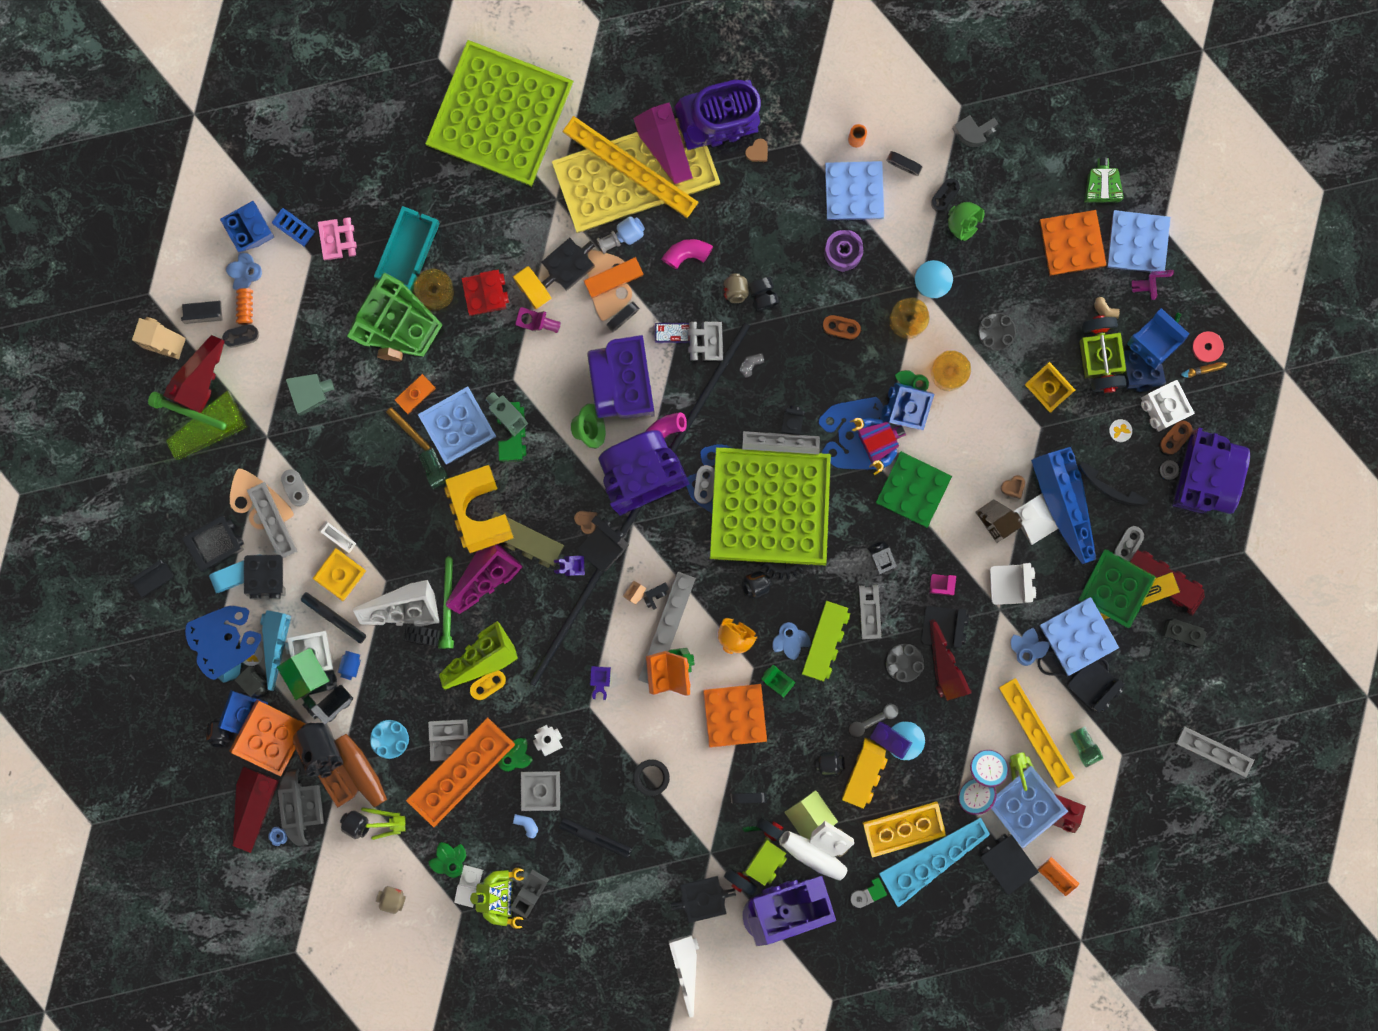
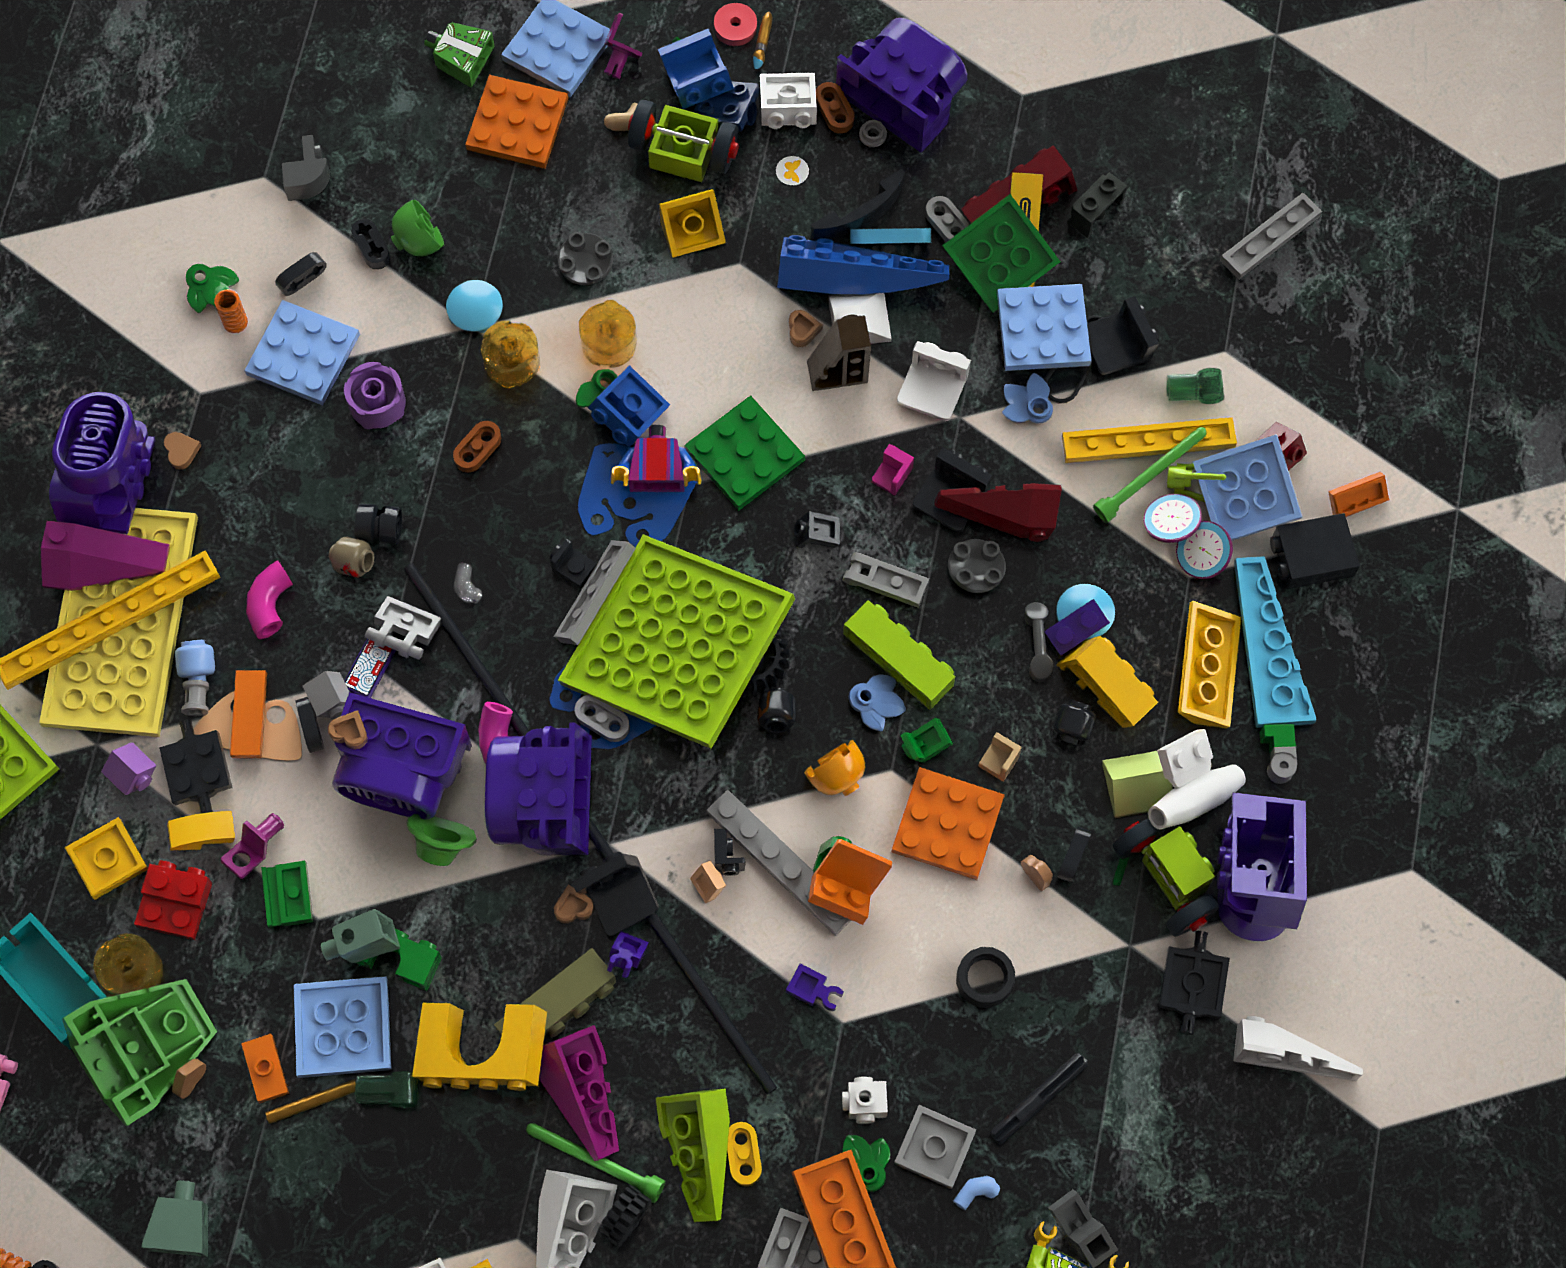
camera: 60 degrees left, 15 degrees down
(492, 242) = (106, 858): none -> yellow plate
(518, 355) = (287, 894): none -> green plate
(548, 228) = (129, 769): none -> medium lavender brick
(619, 347) = (348, 729): none -> medium nougat tile
(644, 319) = (327, 694): none -> light grey brick
(728, 780) = (1037, 872): none -> medium nougat tile
(788, 728) = (1000, 757): none -> tan panel
(868, 115) = (205, 291): none -> green plate
(979, 726) = (1107, 508): none -> bright green piece
(1100, 513) = (901, 235): none -> medium azure beam

